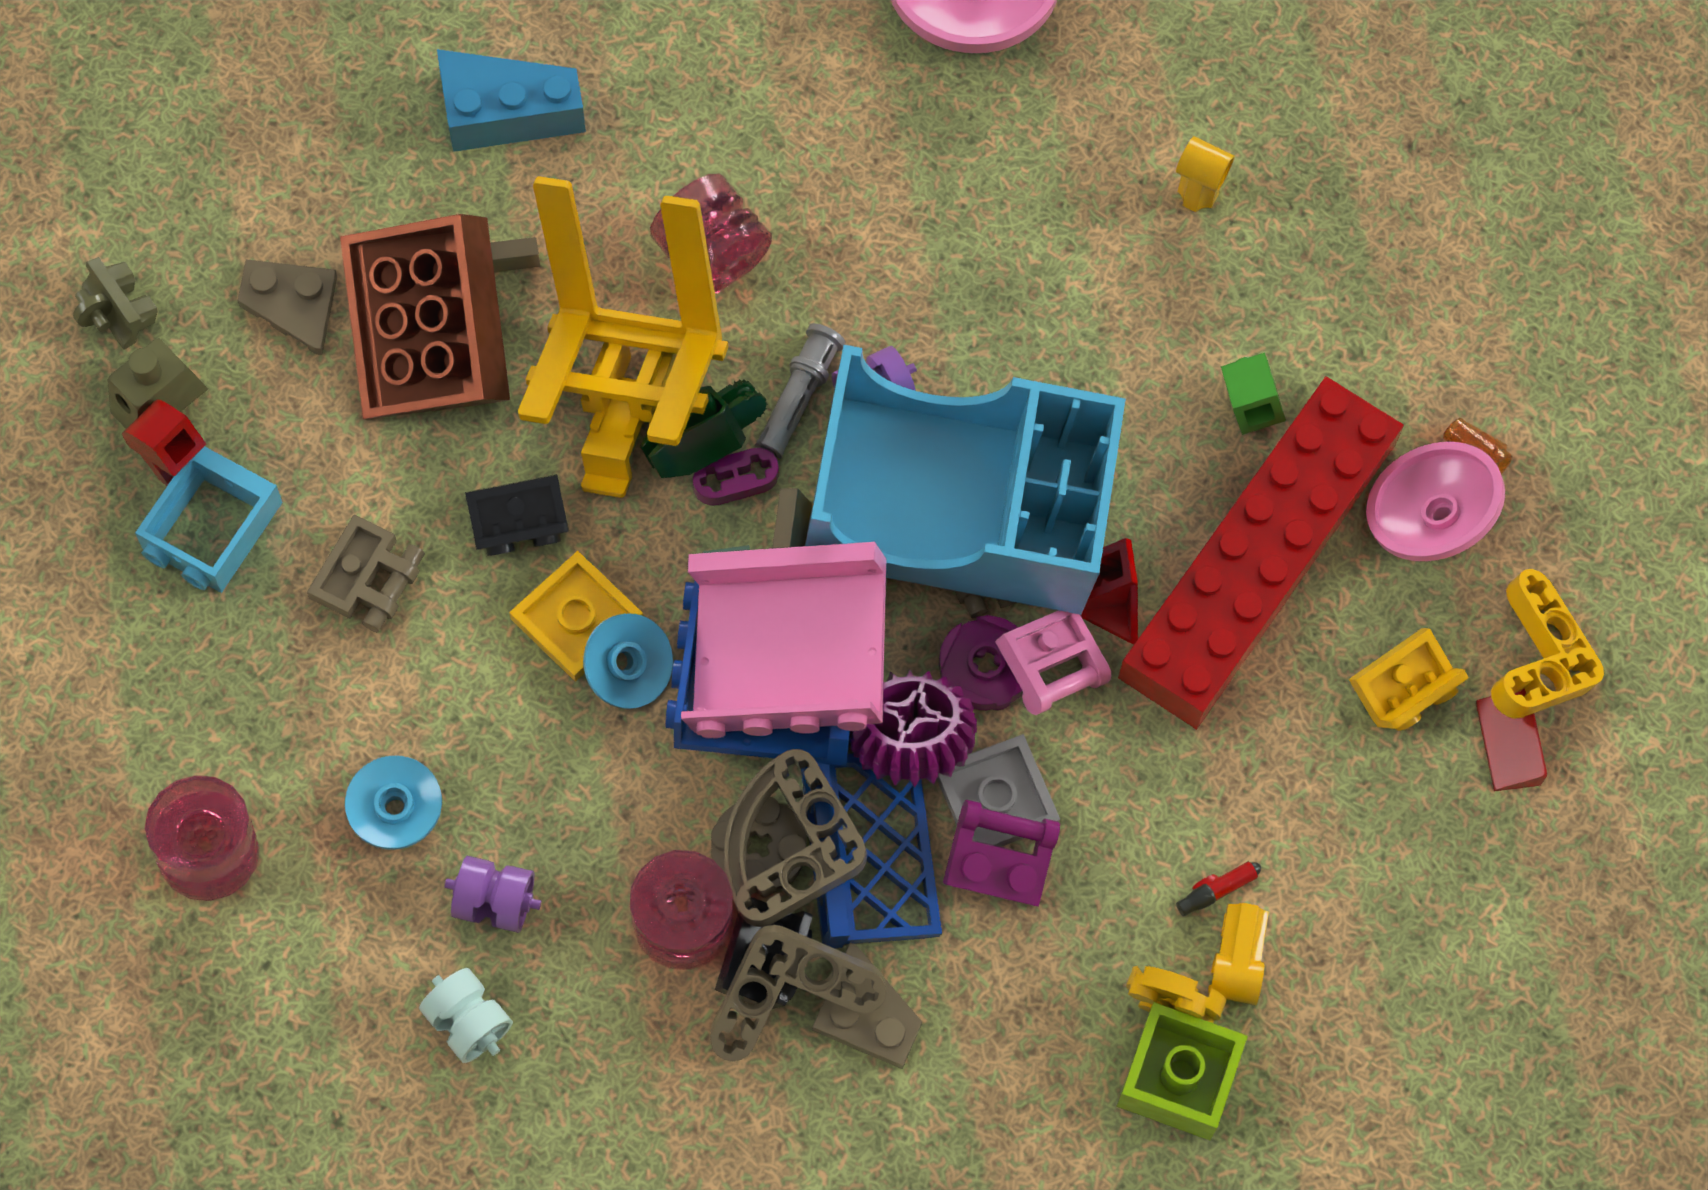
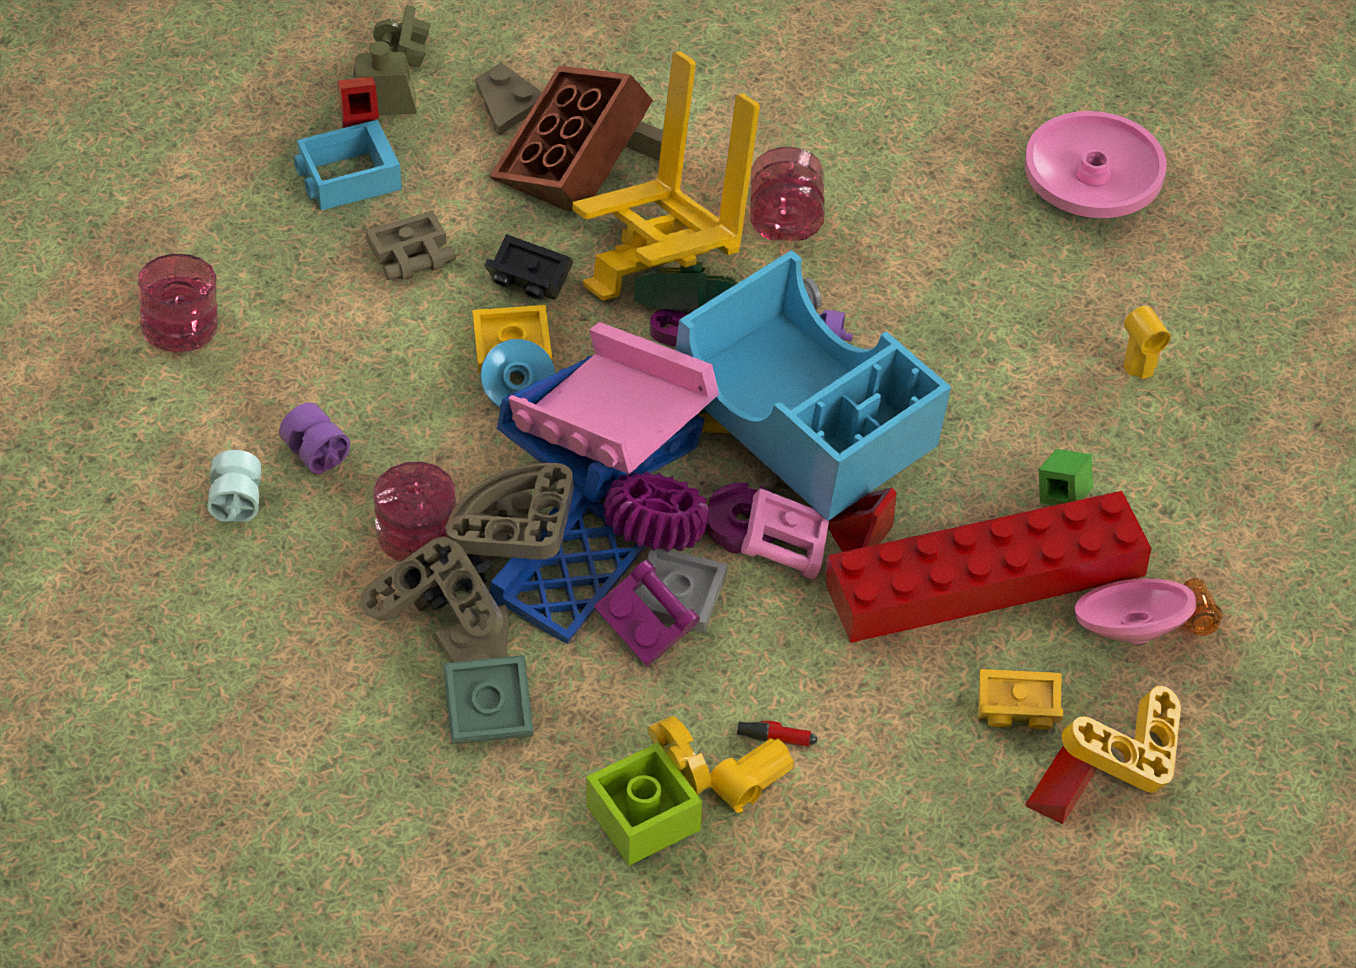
camera: 40 degrees right, 20 degrees down
(390, 780) = (303, 349): medium azure dish -> none
(507, 100) = (733, 66): dark azure wedge -> none
(933, 1066) = (488, 699): none -> sand green plate

